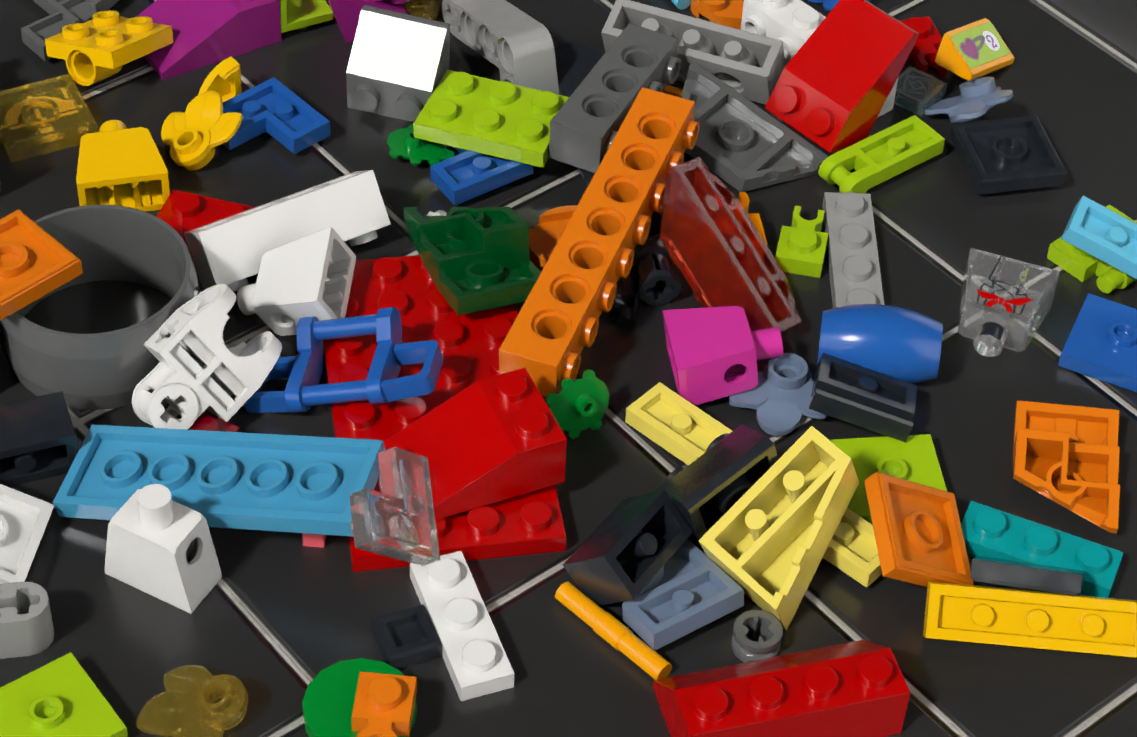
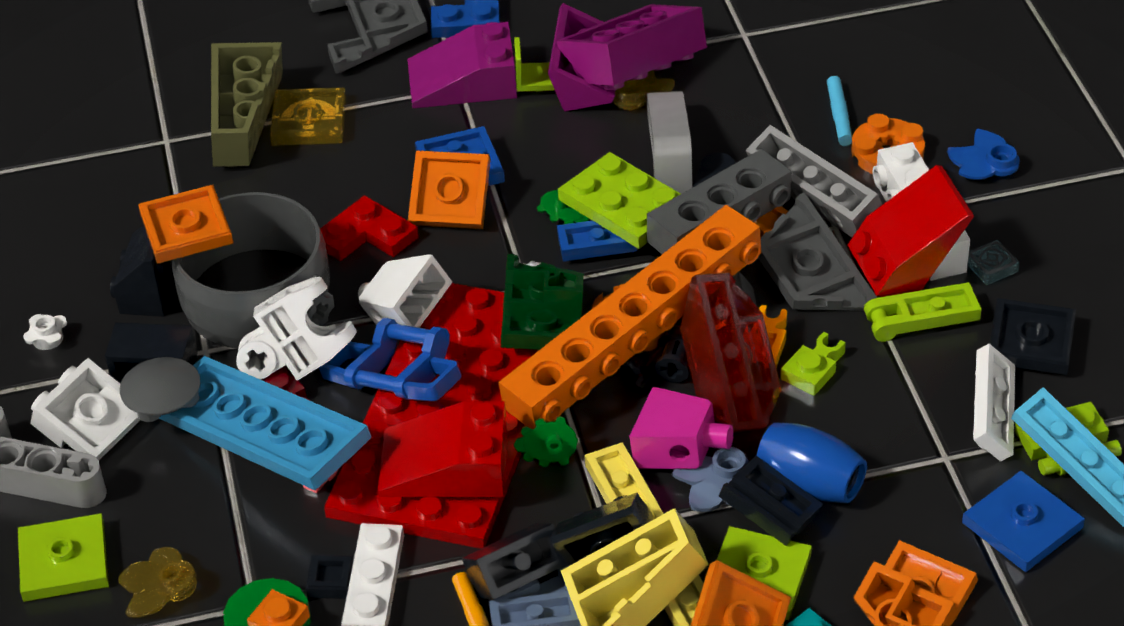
camera: 30 degrees right, 0 degrees up
(68, 475) = (160, 387): none -> dark grey dish
(106, 44) = (375, 71): yellow plate -> none
(121, 168) = (331, 172): yellow torso -> none
(162, 549) = (184, 447): white torso -> none
(199, 130) = (400, 153): yellow plate -> none
(224, 79) = (443, 122): yellow tile -> none
(234, 245) = (451, 242): white brick -> none
(278, 152) = (449, 189): none -> orange plate
(396, 63) = (572, 135): slope -> none
(401, 516) = (356, 490): clear plate -> none
(852, 249) = (849, 383): light grey plate -> none
(927, 44) = (1021, 222): red plate -> none
(973, 50) = (1057, 239): slope -> none
(973, 102) = (1035, 280): sand blue plate -> none
(1003, 301) = (941, 458): clear torso -> none
(1014, 226) = (994, 402): none -> white plate

